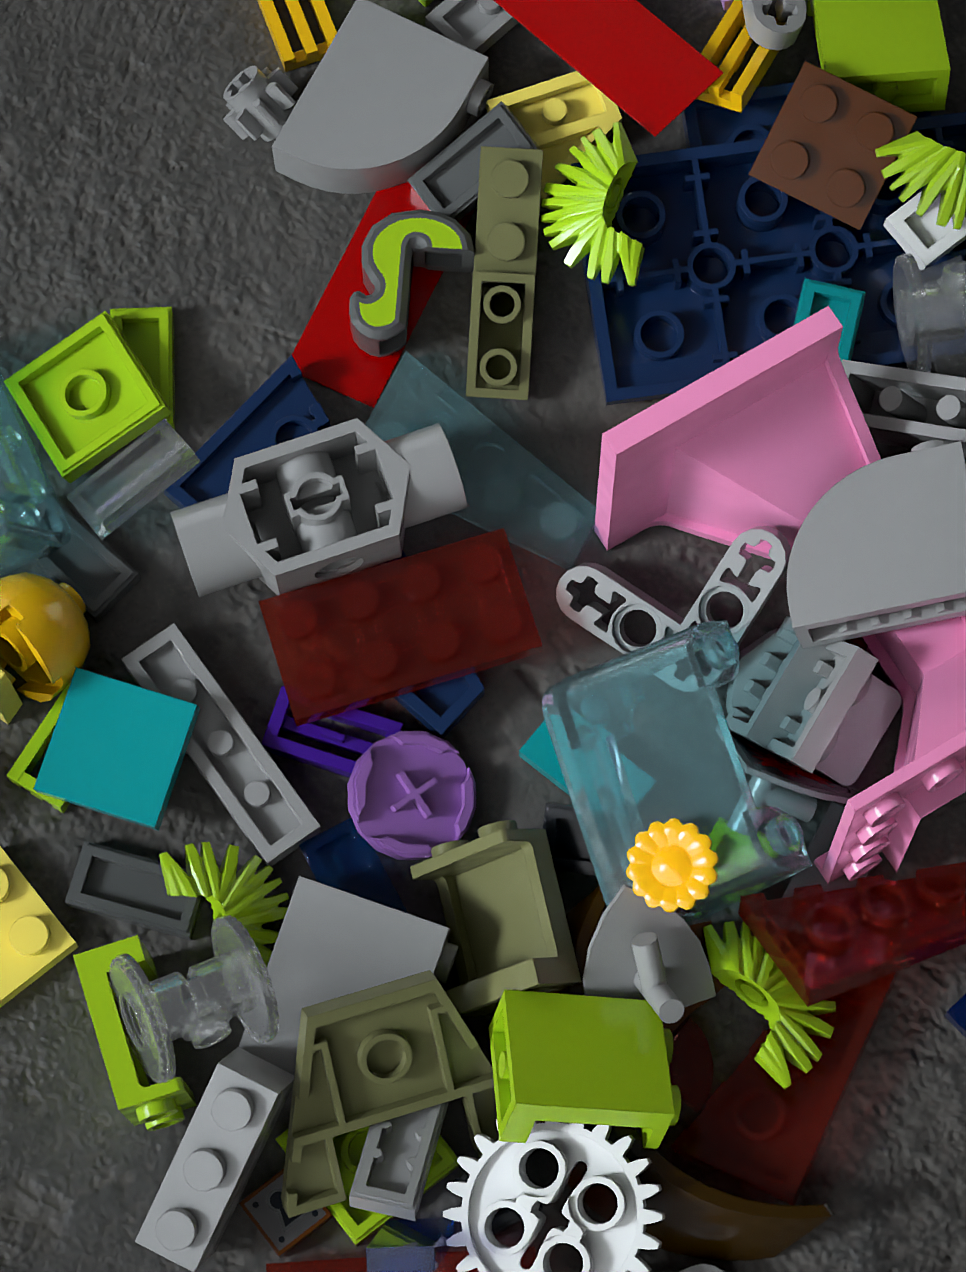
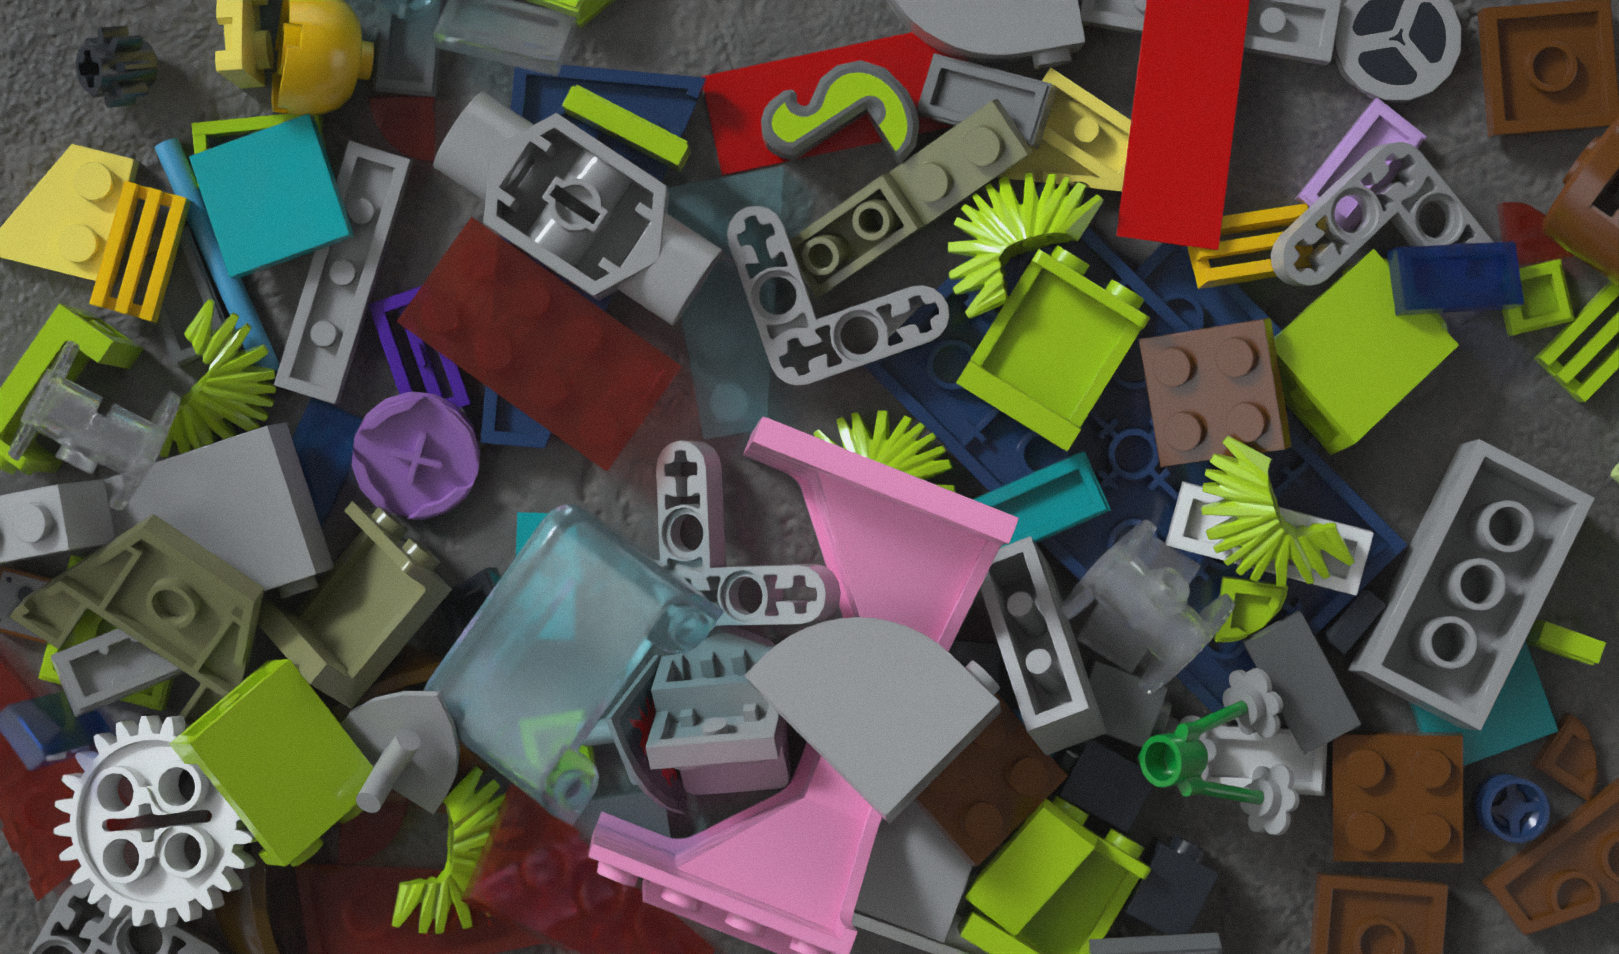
camera: 50 degrees right, 15 degrees up
(44, 845) = (116, 245): none -> yellow tile
(104, 833) = (231, 290): none -> dark azure bar
(143, 612) = (408, 124): none -> clear red tile
(294, 421) = (626, 127): none -> lime tile
(538, 415) = (802, 320): none -> light grey beam
(672, 865) = (478, 721): yellow piece -> none
(705, 240) = (1054, 346): none -> lime panel

